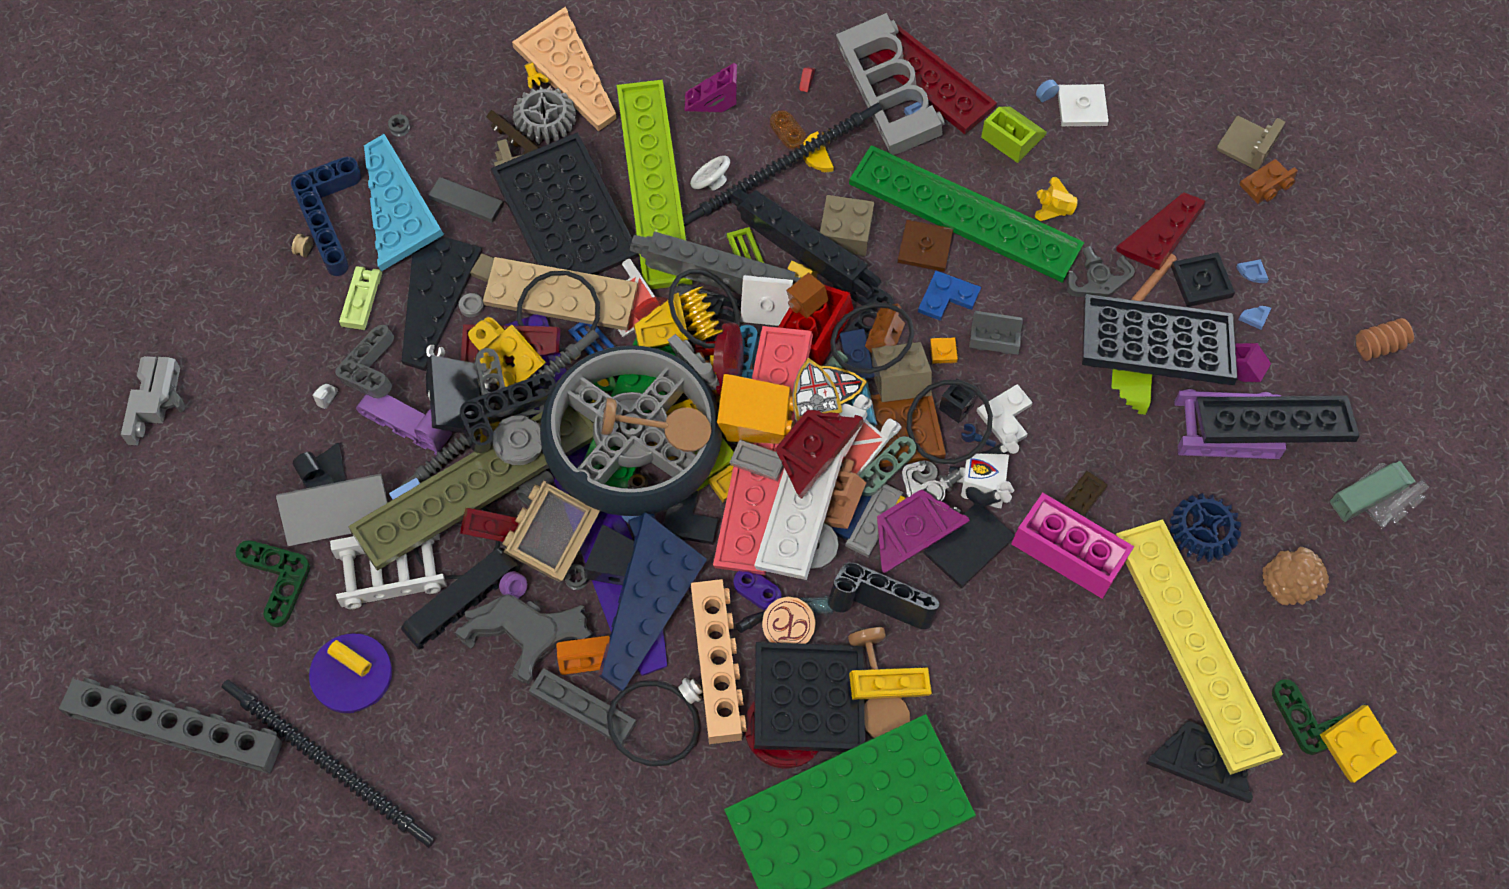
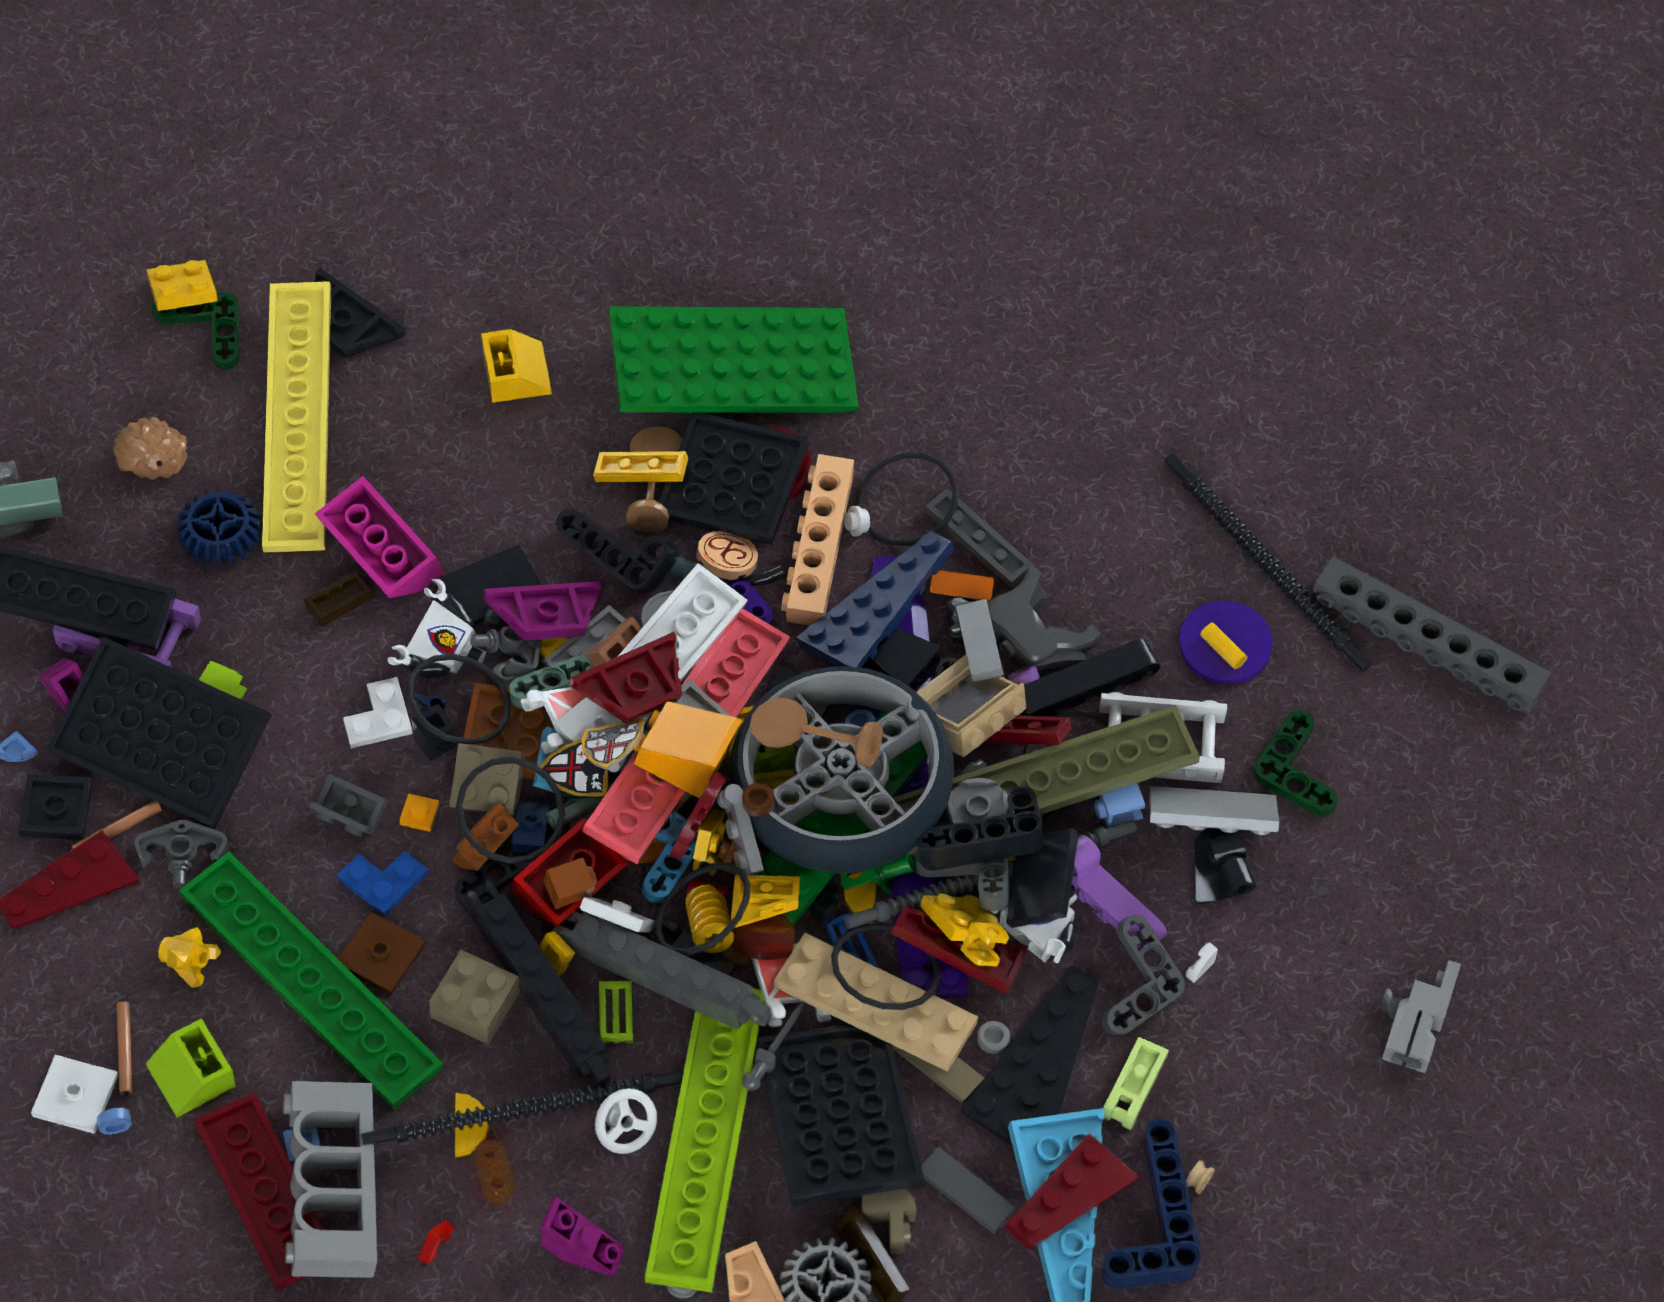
camera: 165 degrees left, 5 degrees down
(387, 203) = (1078, 1185): none -> dark red wing
(553, 587) = (979, 640): none -> light grey tile
(625, 225) = (766, 1059): none -> dark grey sword
(683, 364) = (758, 799): none -> reddish brown tile
(1036, 749) = (514, 366): none -> yellow slope
(1066, 141) = (124, 1048): none -> nougat piece

